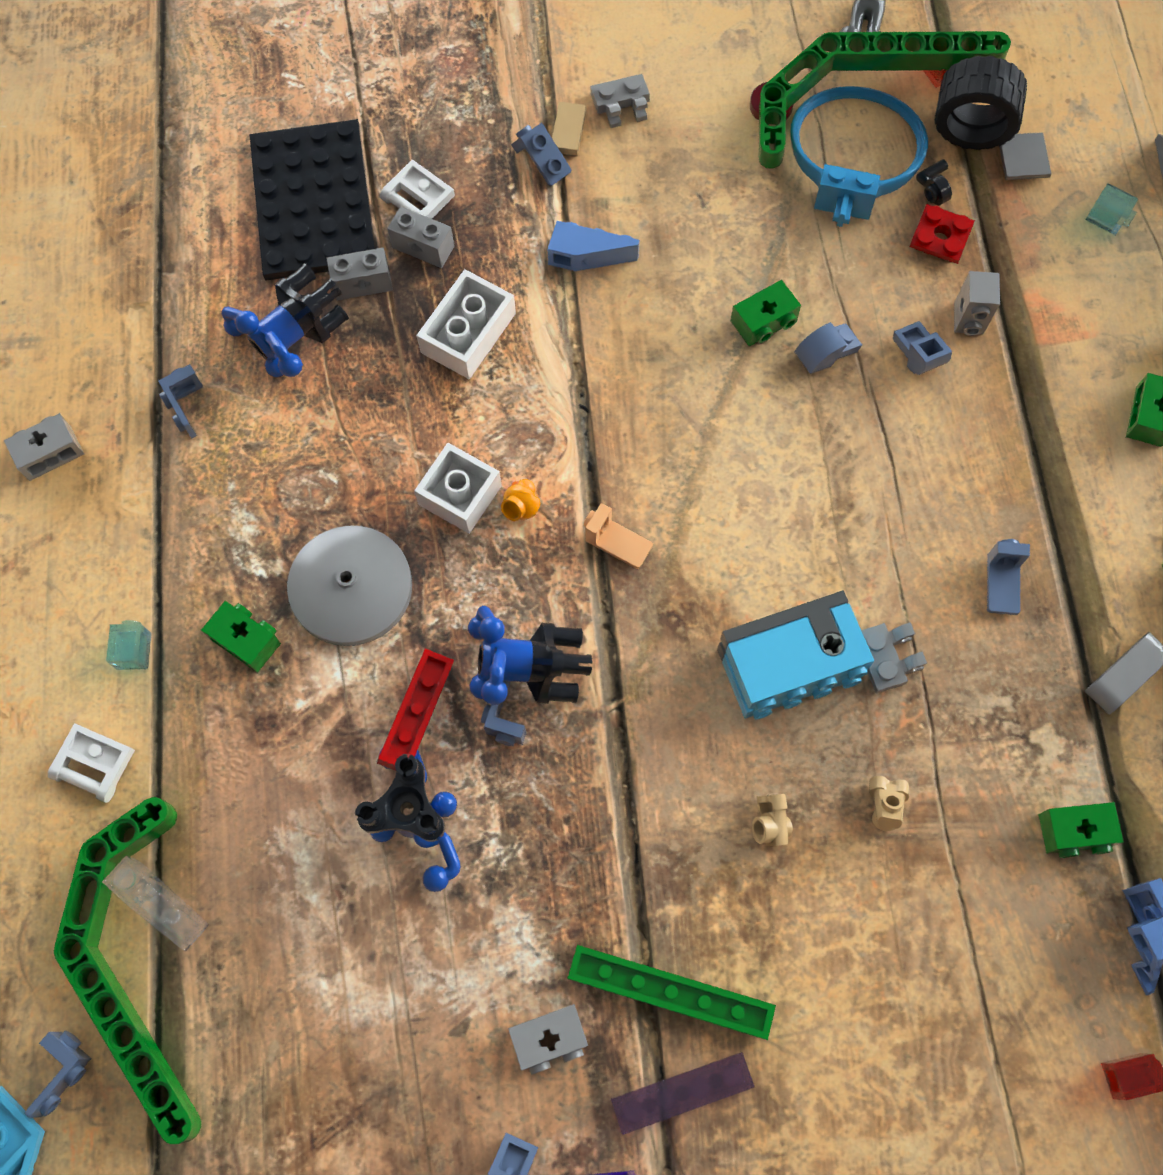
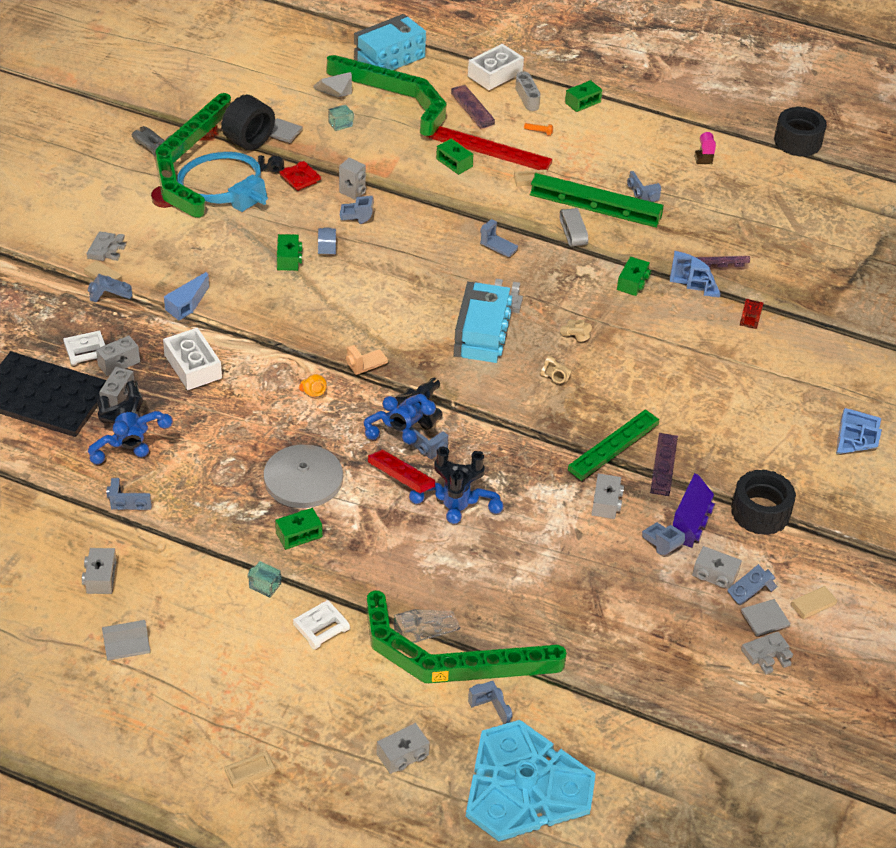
camera: 65 degrees left, 25 degrees down
(458, 488) = (288, 402): white brick -> none

